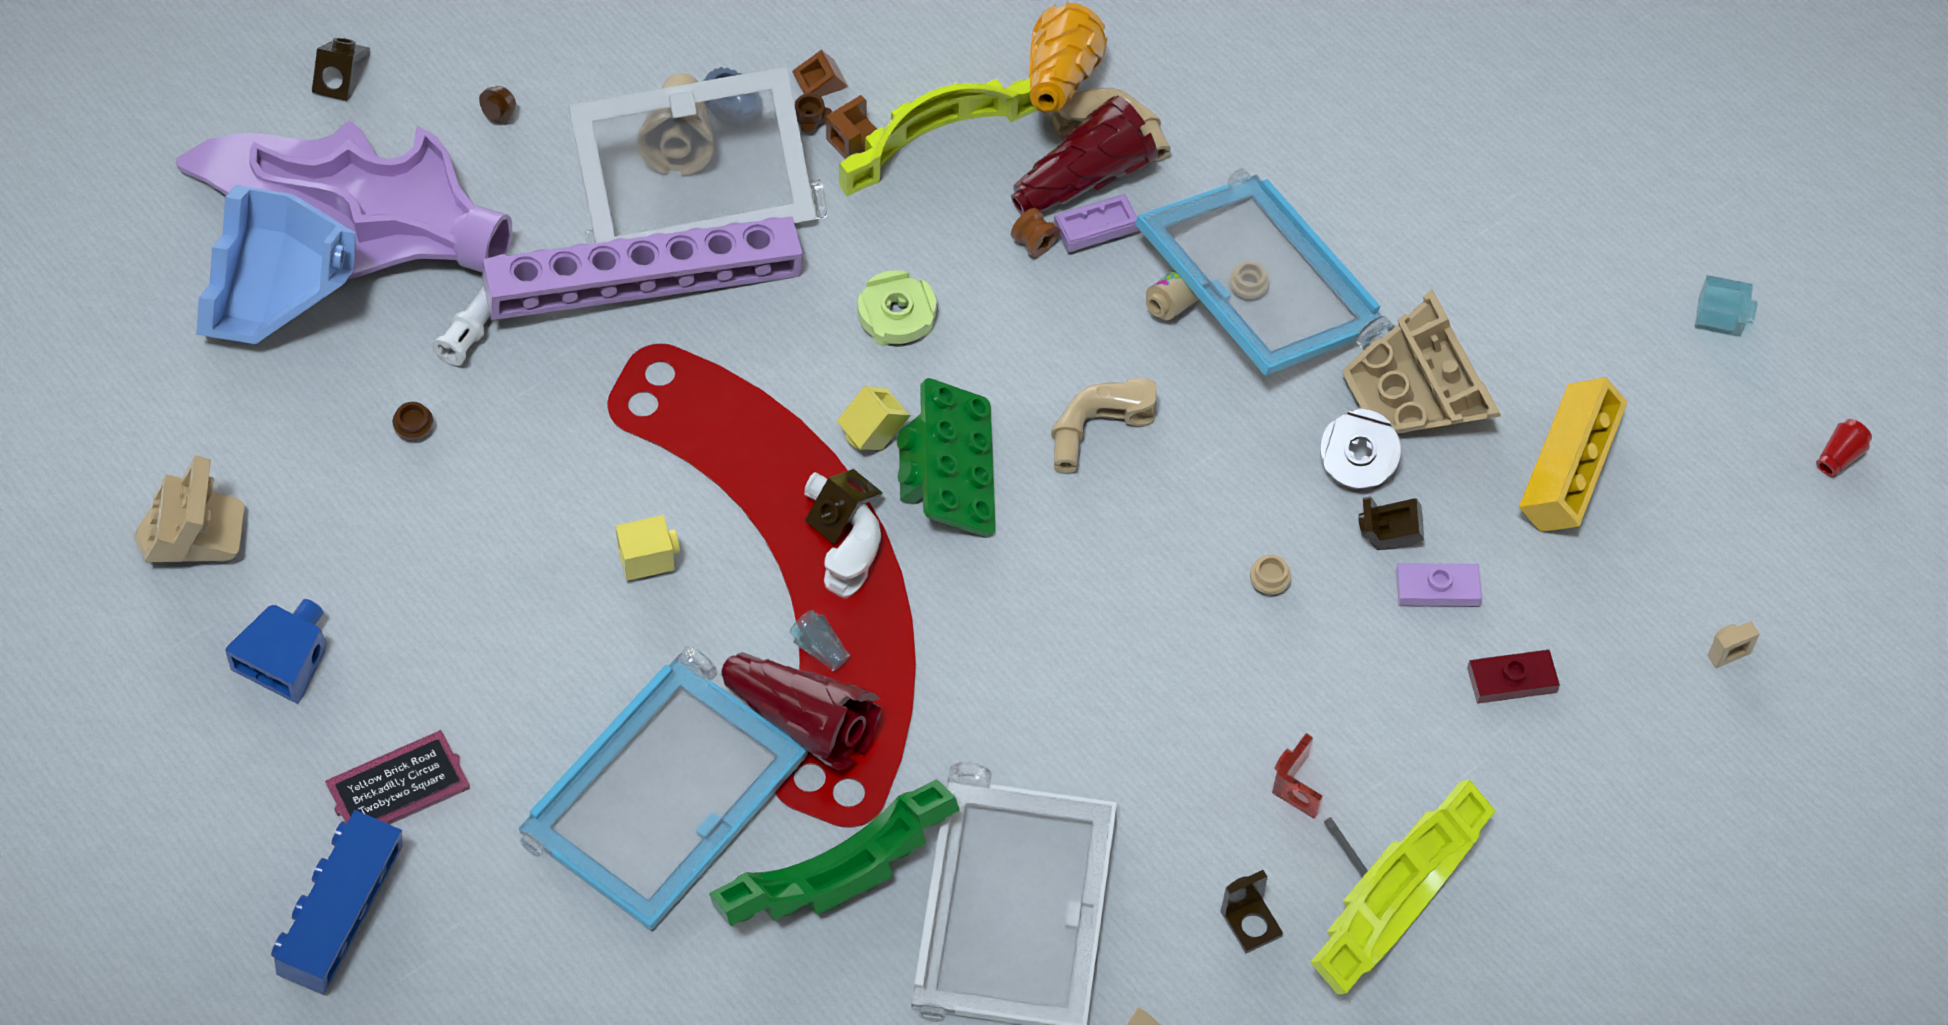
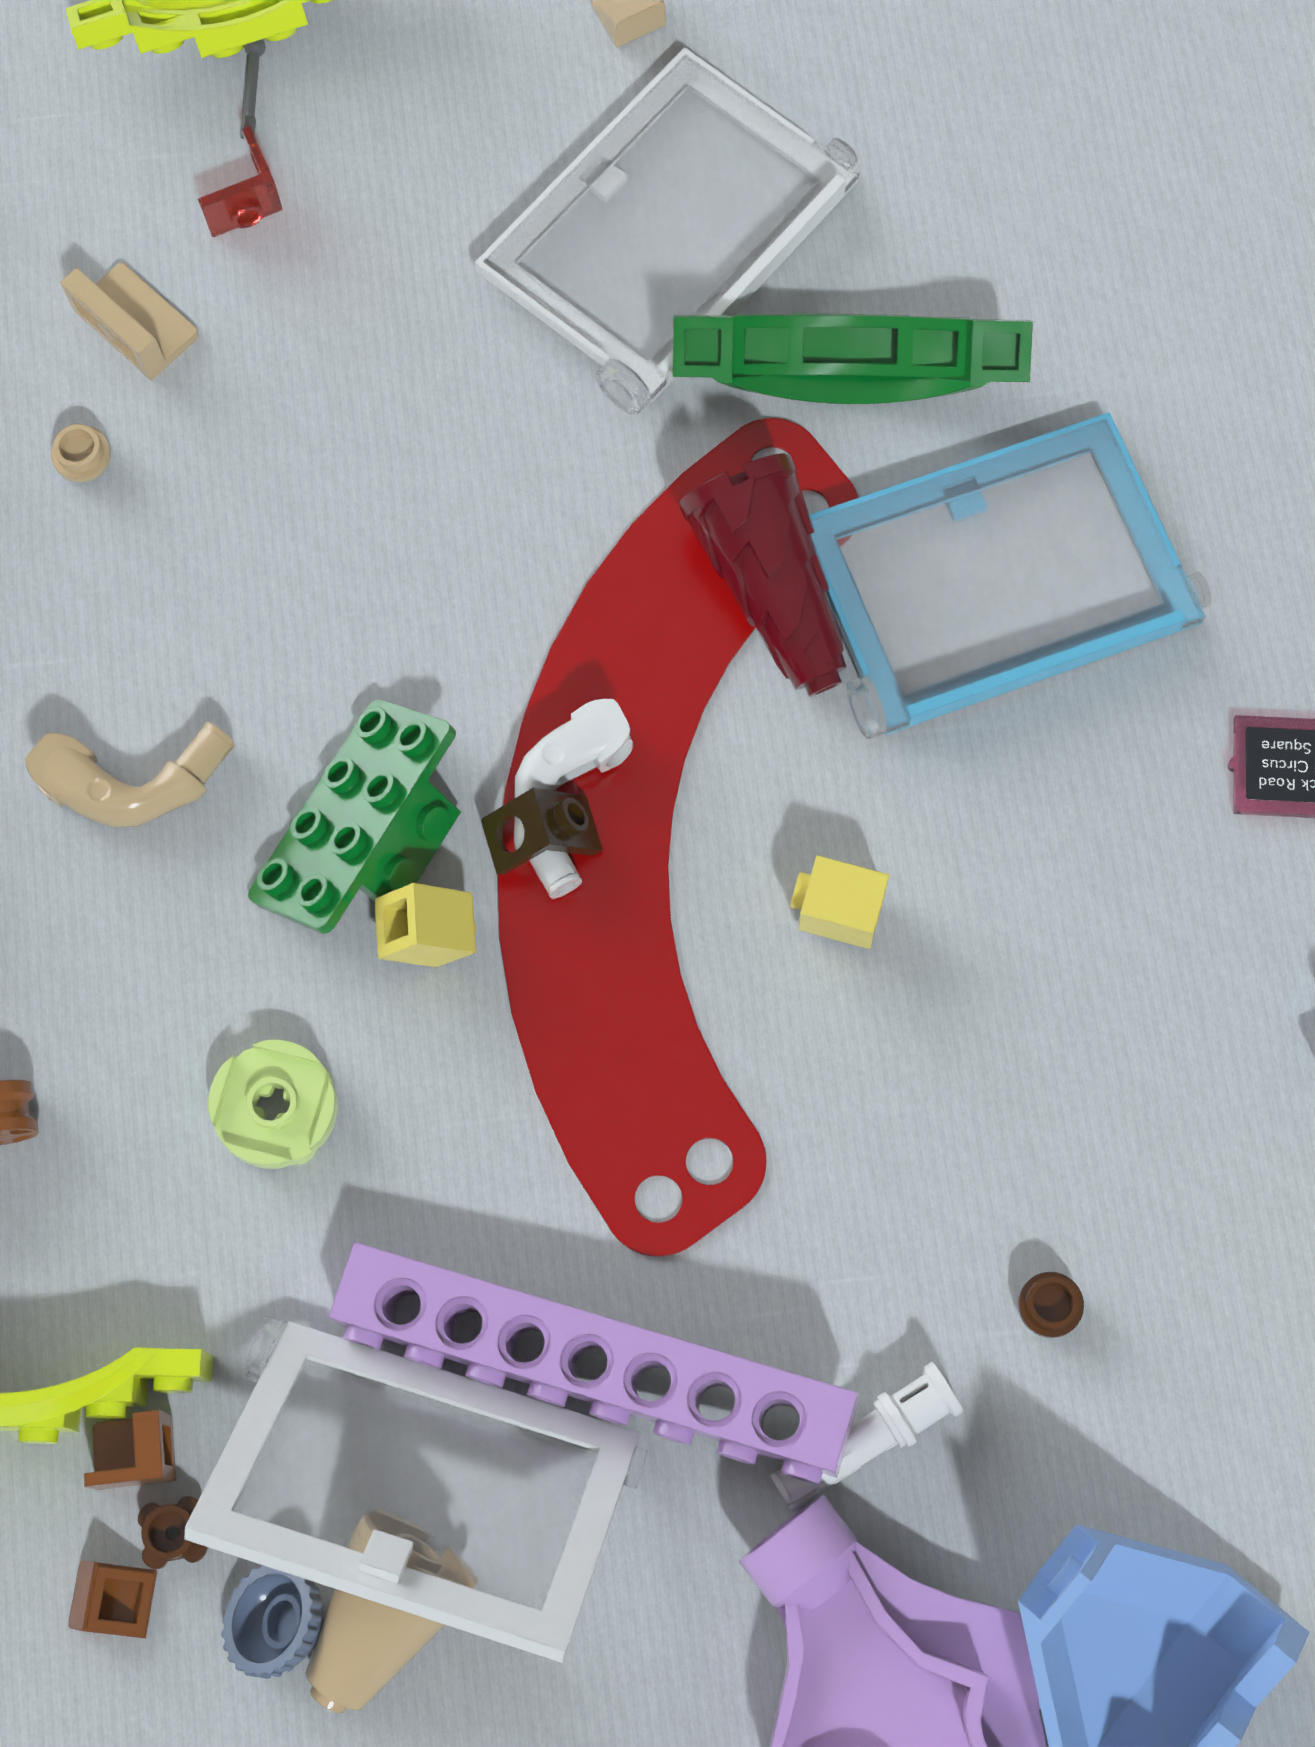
camera: 140 degrees left, 15 degrees up
(818, 639) = (693, 663): clear light blue cone -> none
(1245, 899) = (413, 79): dark brown bracket -> none
(1306, 665) = (131, 317): none -> tan panel

